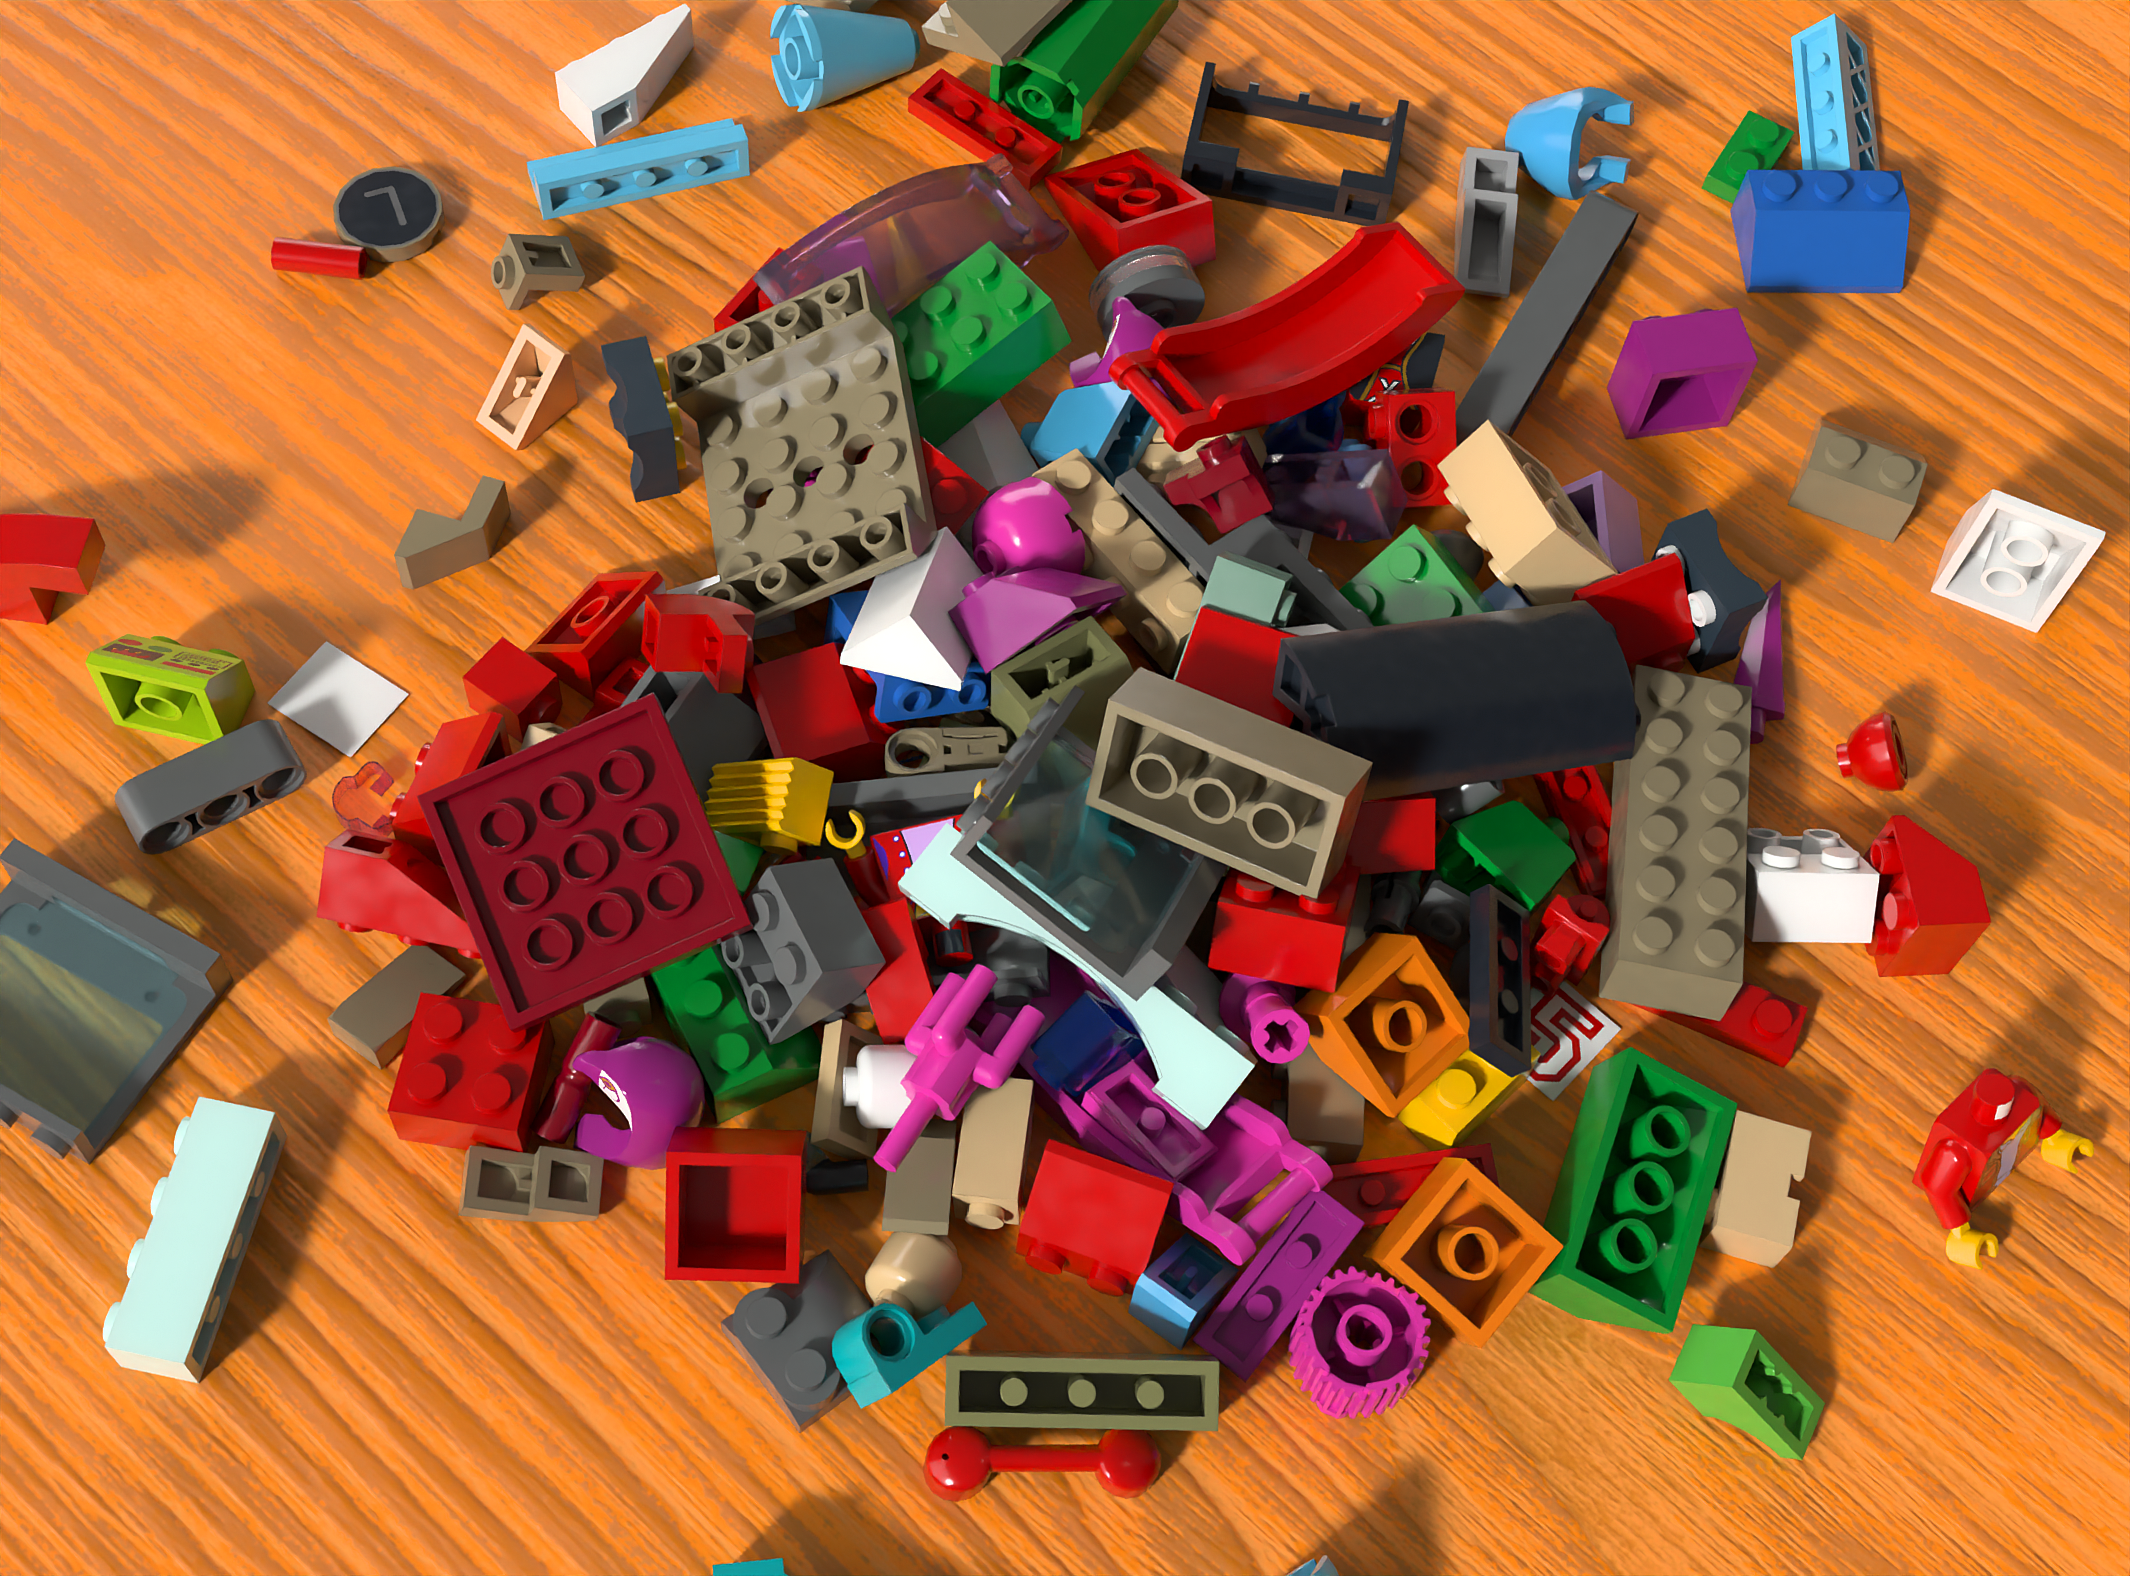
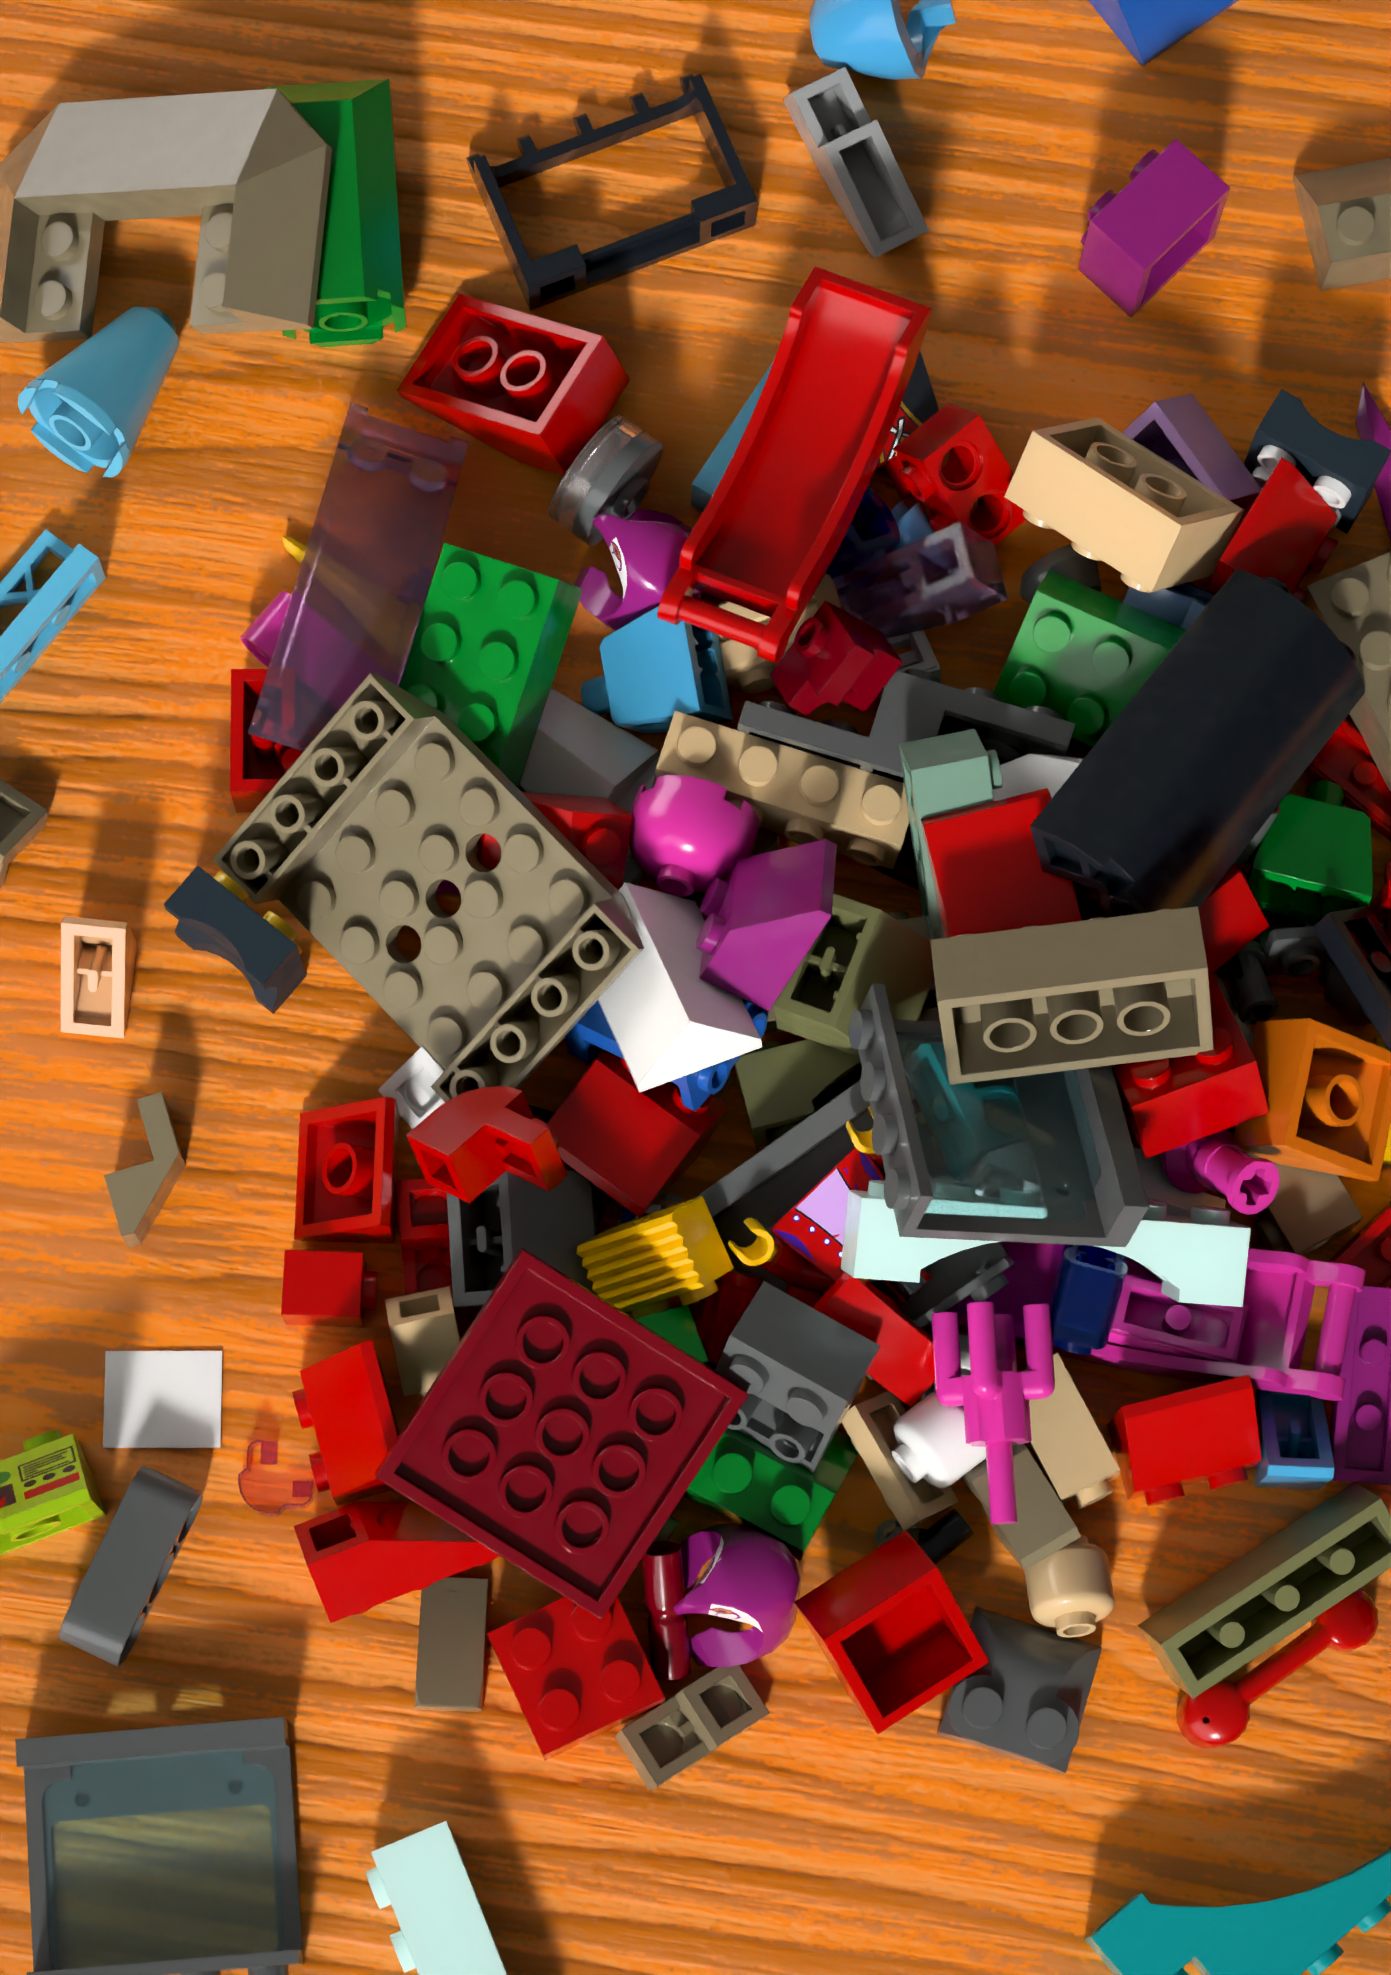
camera: 30 degrees left, 15 degrees up
(905, 1346) = (1115, 1653): teal plate -> none
(947, 749) = (780, 1096): dark tan piece -> none
(984, 127) = (301, 374): red plate -> none
(1547, 317) = (984, 247): dark grey beam -> none

